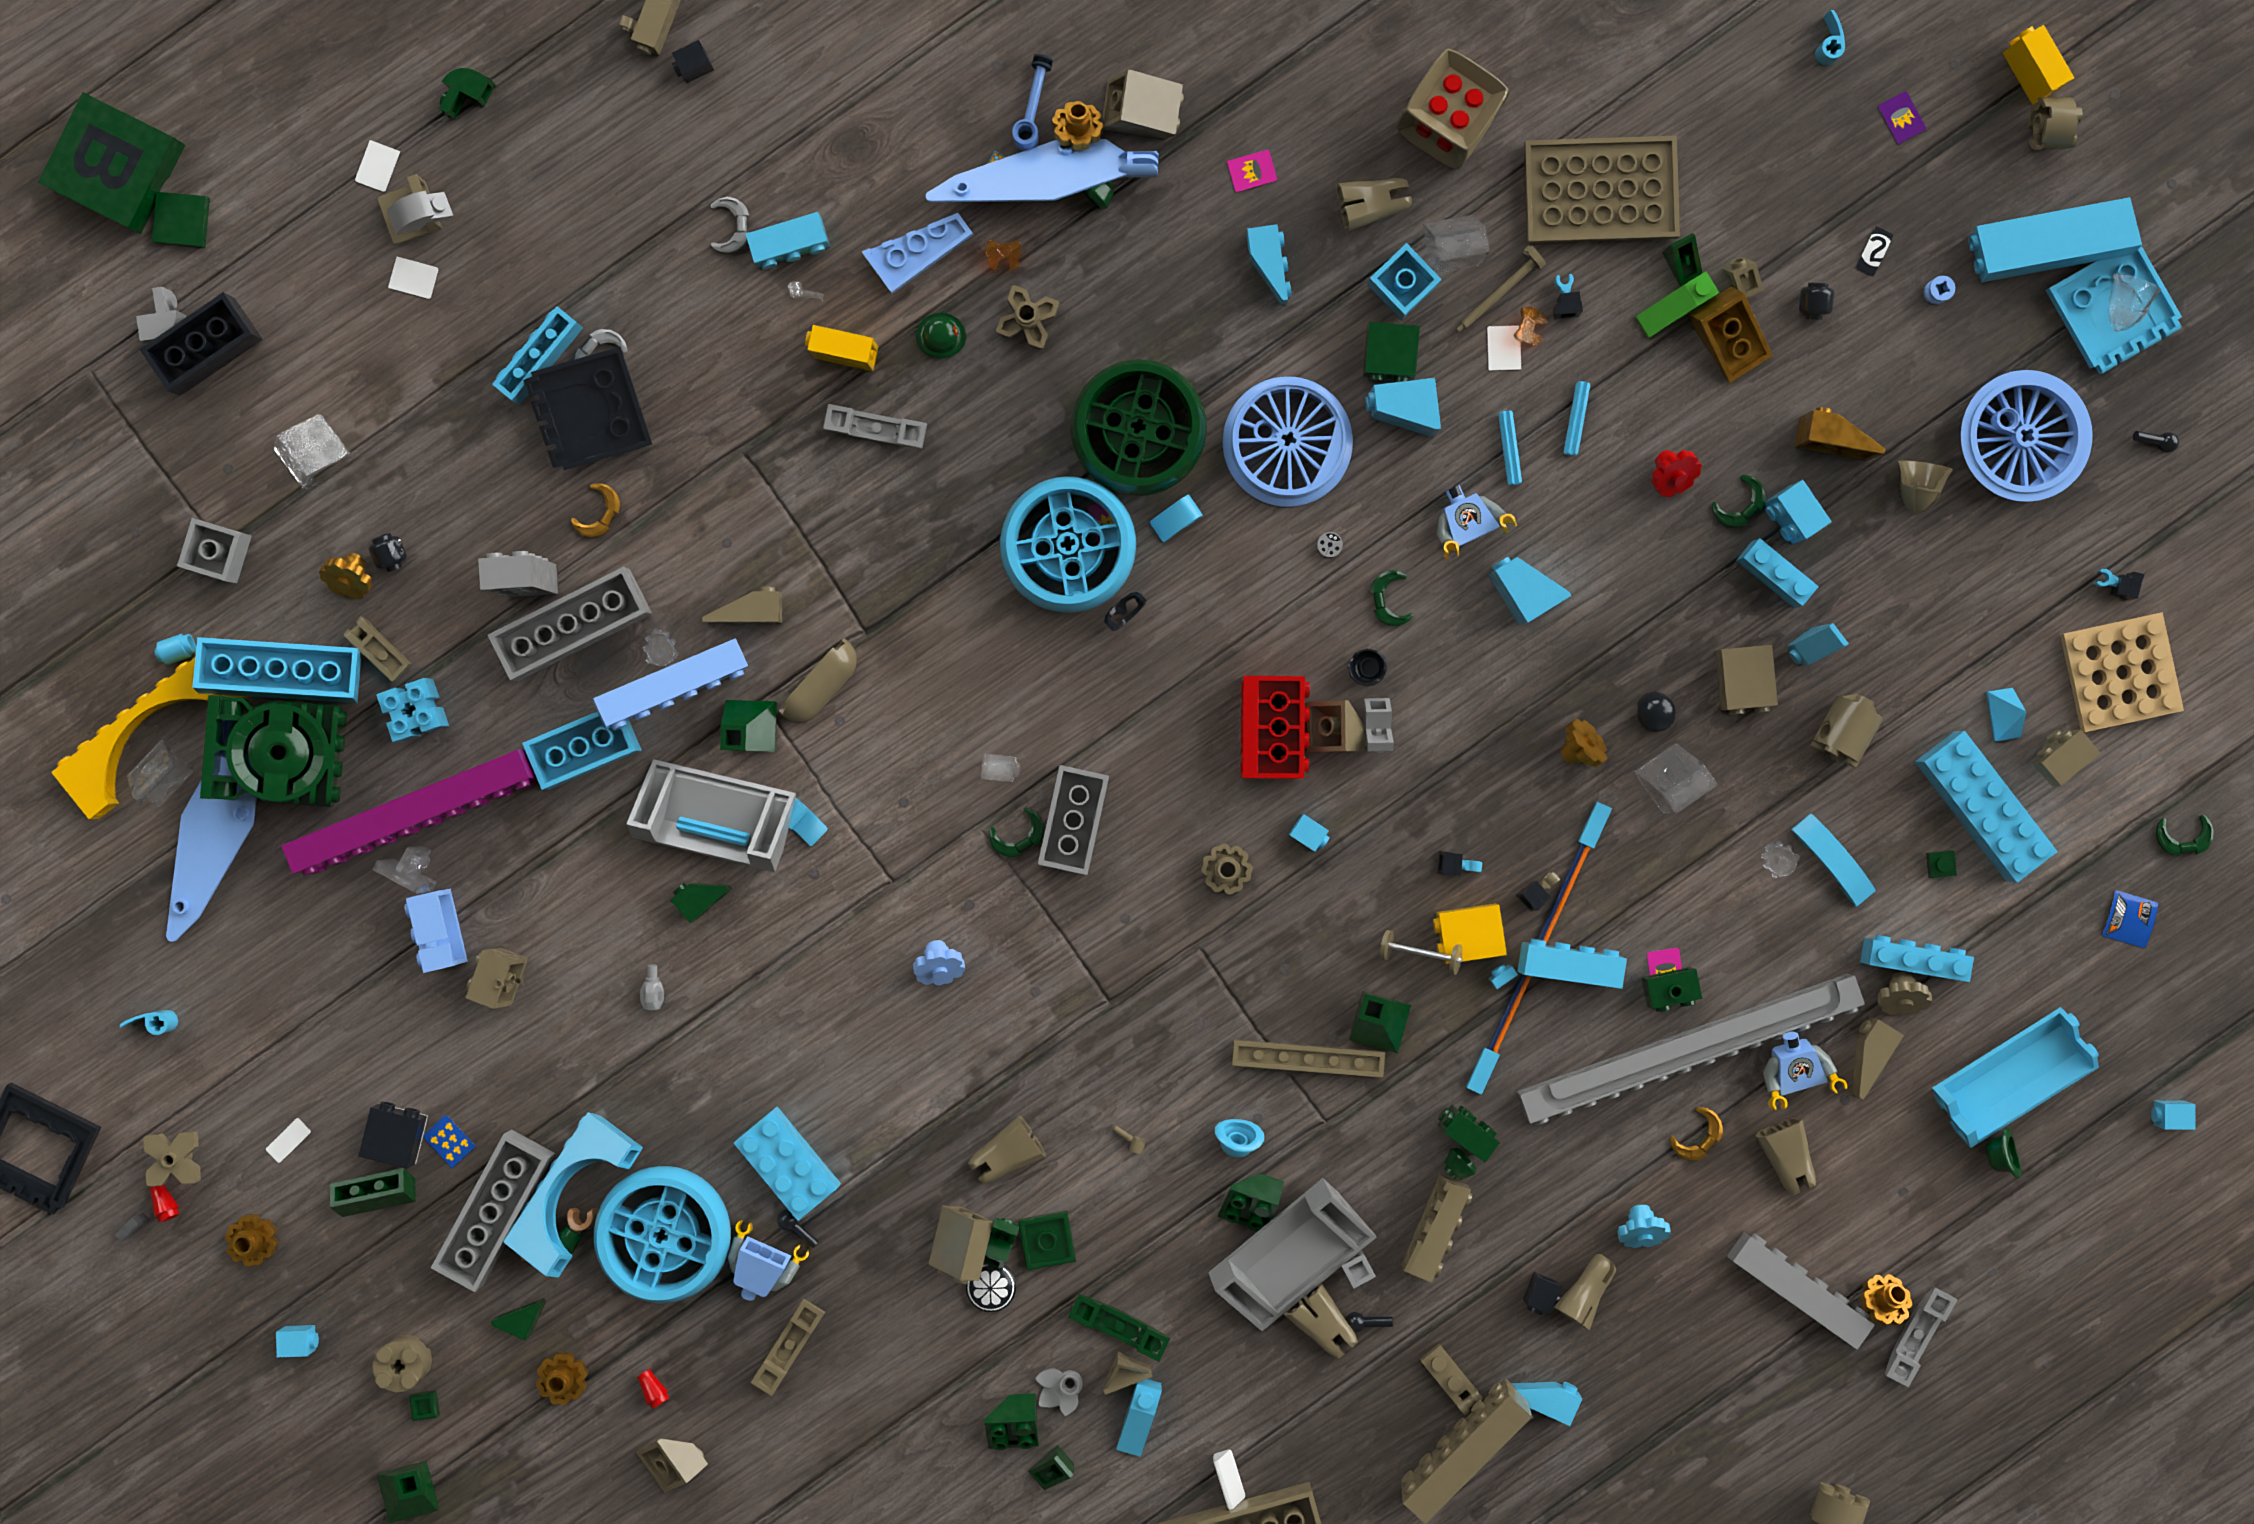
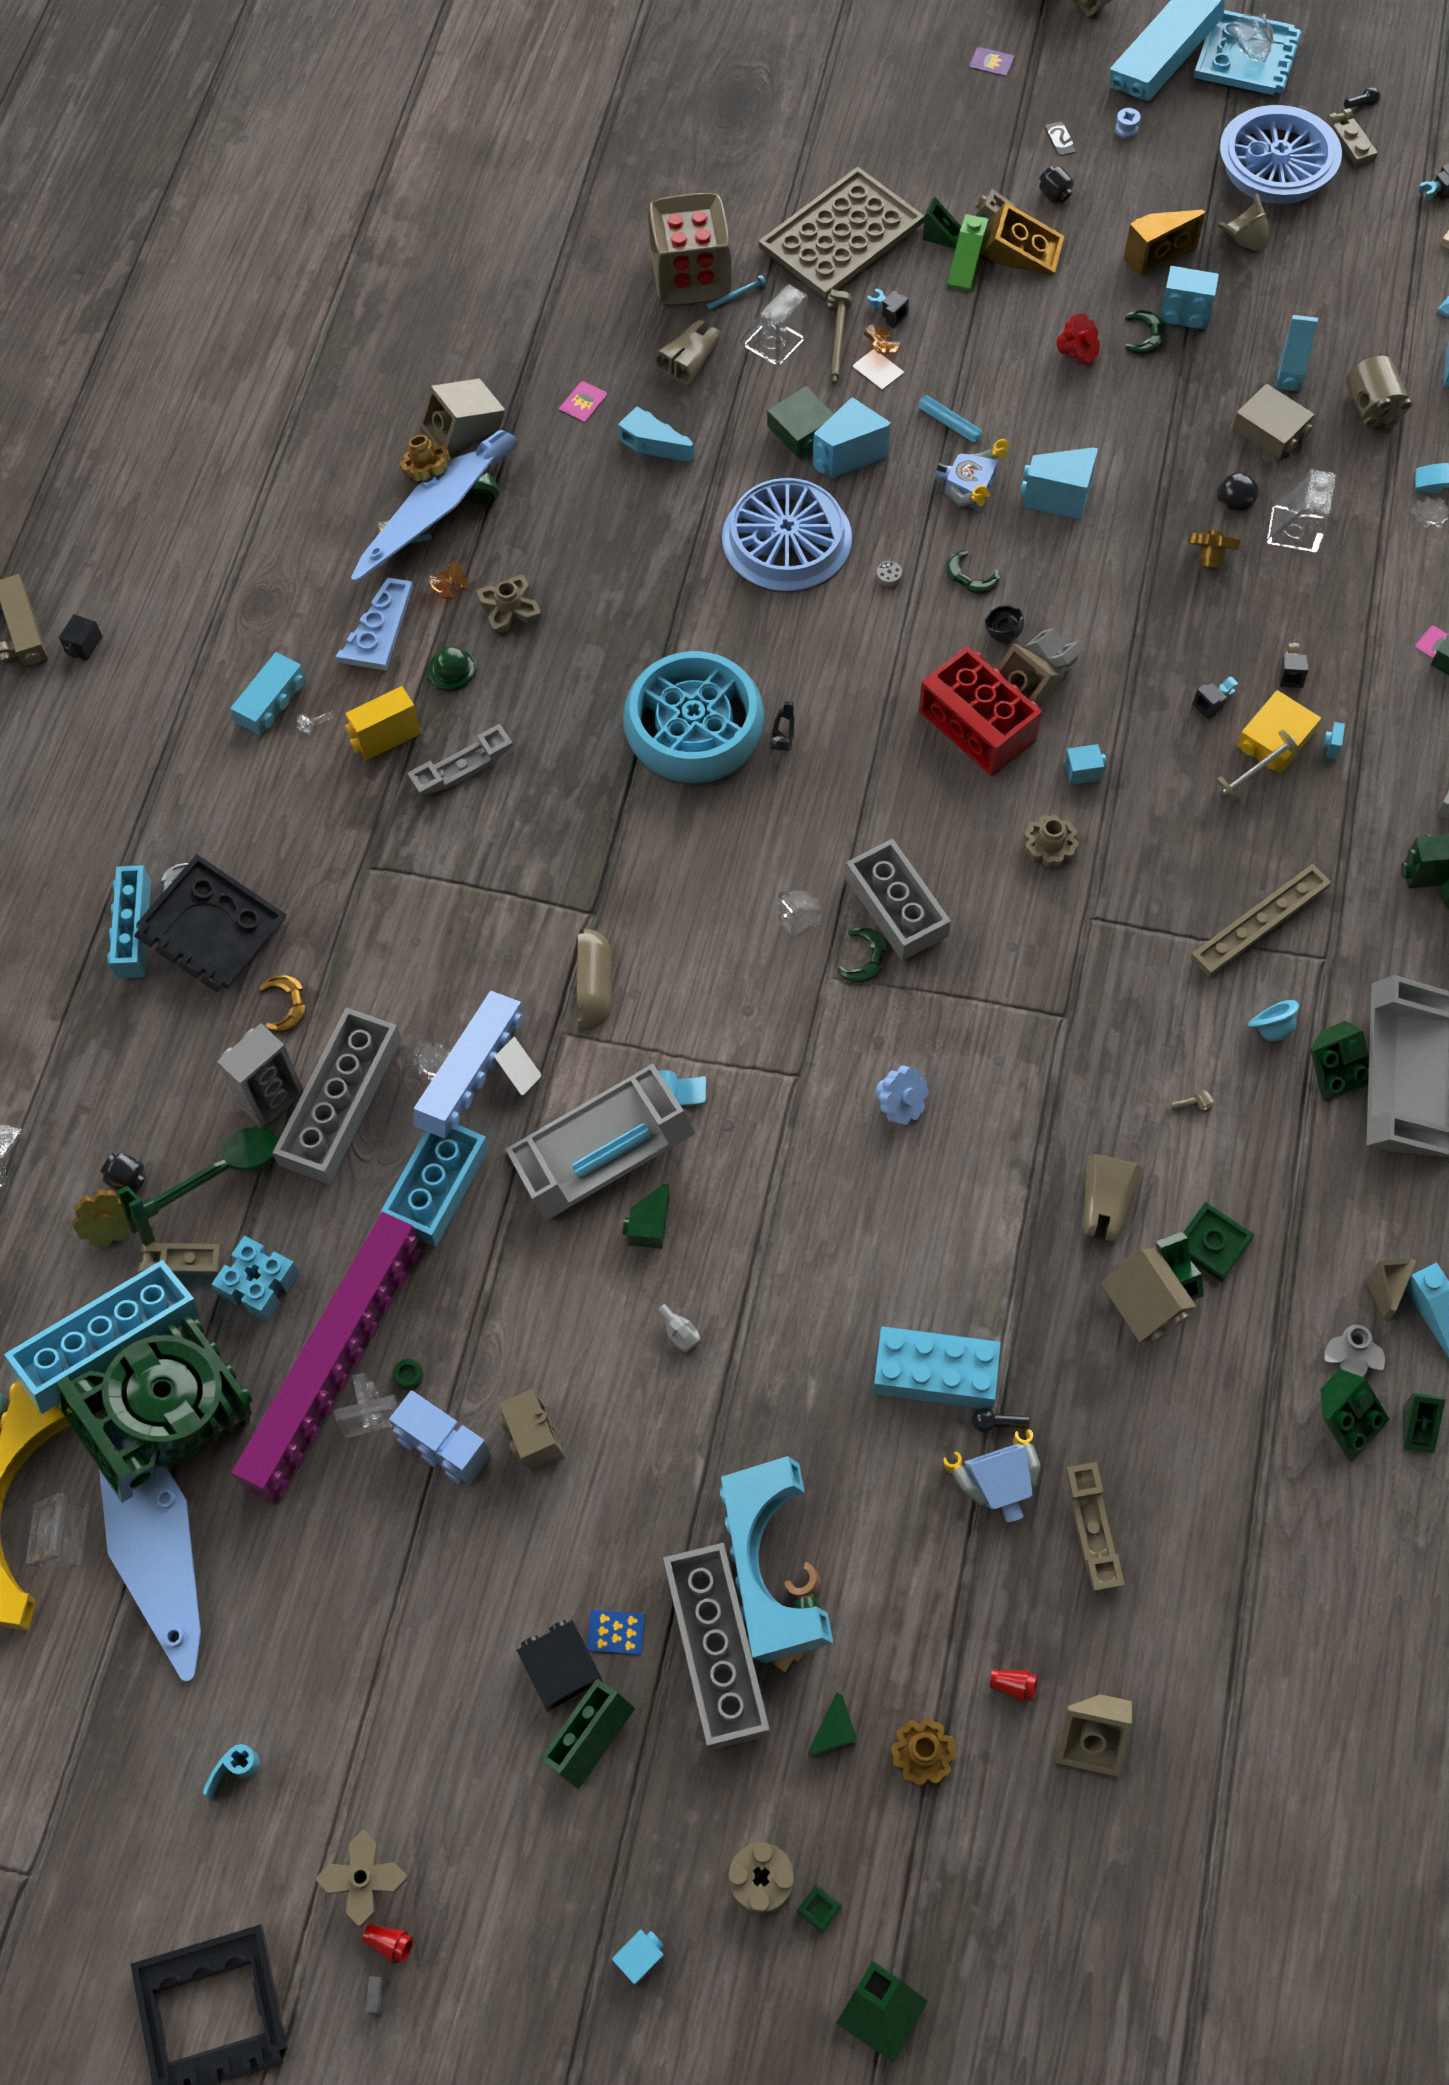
camera: 45 degrees left, 25 degrees down
(251, 1240) = (508, 1897): pearl gold plant -> none
(288, 1140) = (461, 1770): white sticker -> none
(459, 861) = (408, 1374): none -> dark green tile
(477, 608) = (241, 1151): none -> dark green piece
(619, 1219) = (940, 1502): medium azure wheel -> none
(706, 710) = (518, 1066): none -> white sticker
(740, 211) = (209, 707): light grey piece -> none
(749, 726) = (565, 1053): dark green slope -> none
(755, 607) = (485, 963): dark tan slope -> none
(993, 1290) = (1211, 1322): dish -> none
(1042, 64) = (389, 489): medium blue piece -> none
(1120, 1326) = (1347, 1253): dark green slope -> none
(1176, 518) = (756, 643): medium azure panel -> none
(1182, 439) = (671, 586): dark green wheel -> none
(1380, 1022) = (1282, 847): dark green slope -> none
(1404, 281) = (764, 374): medium azure brick -> none
(1465, 174) = (760, 282): none -> medium azure piece
(1572, 964) = (1374, 686): medium azure brick -> none
(1576, 418) = (976, 368): medium azure axle -> none
(1589, 838) = (1390, 807): piece -> none
(1777, 573) = (1218, 346): medium azure brick -> none
(1834, 42) = (901, 48): medium azure panel -> none
(2104, 469) = (1352, 137): none -> dark tan plate

